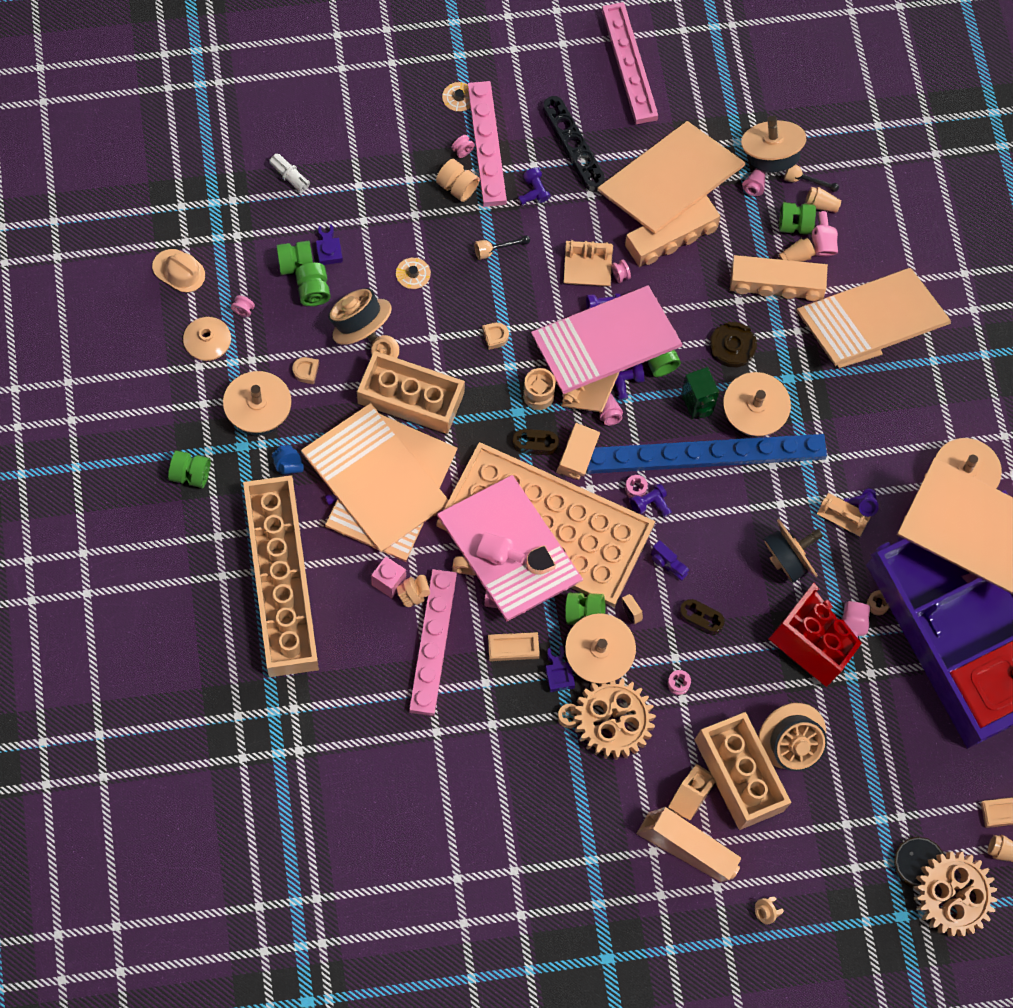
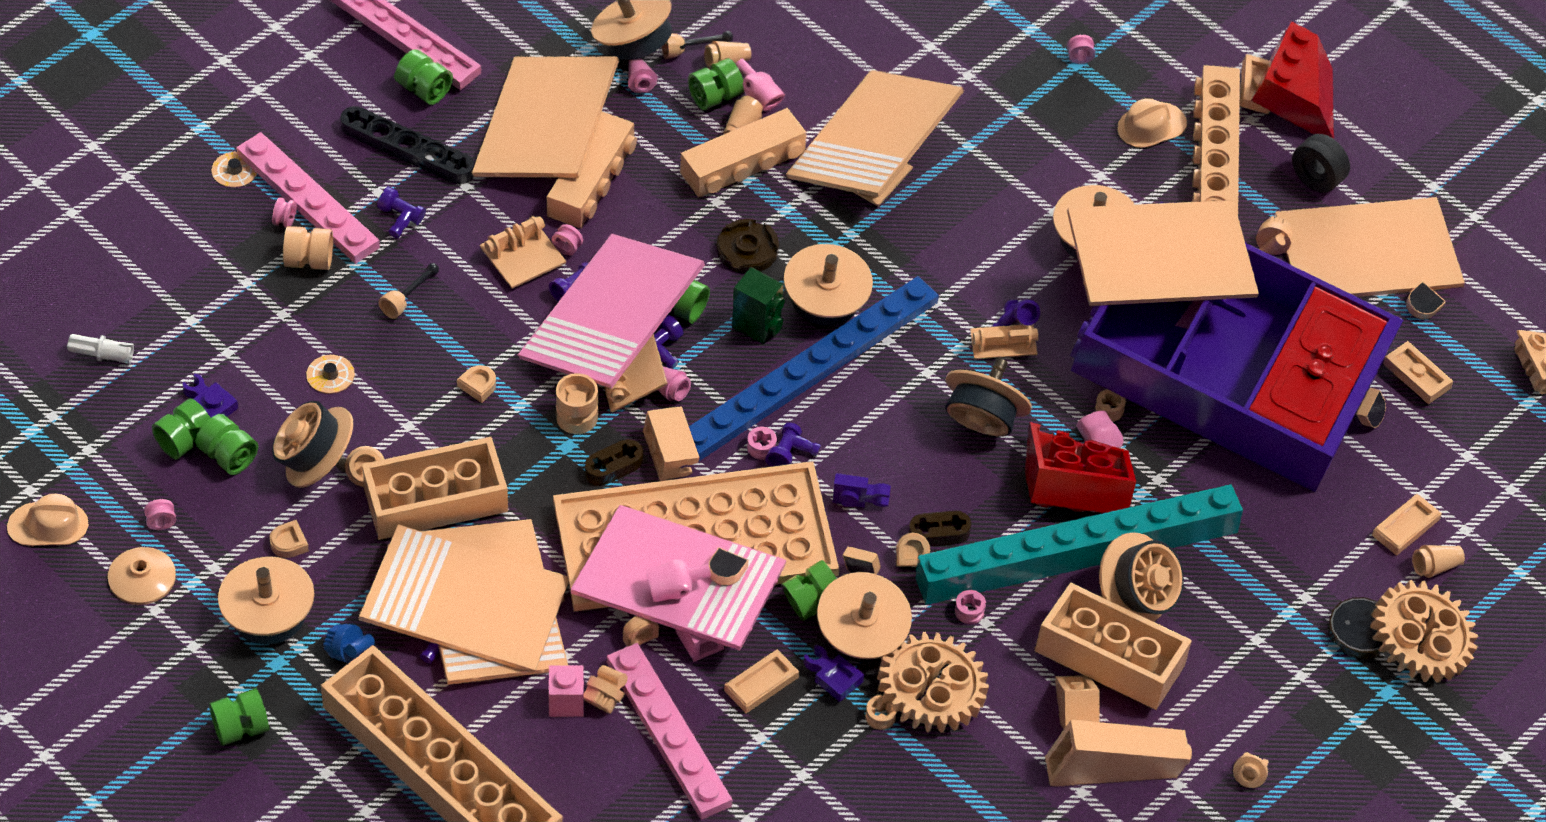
camera: 35 degrees left, 15 degrees down
(616, 100) = (423, 76): none -> bright green wheel
(671, 622) = (909, 548): none -> light nougat tile
(779, 686) = (1074, 543): none -> teal brick

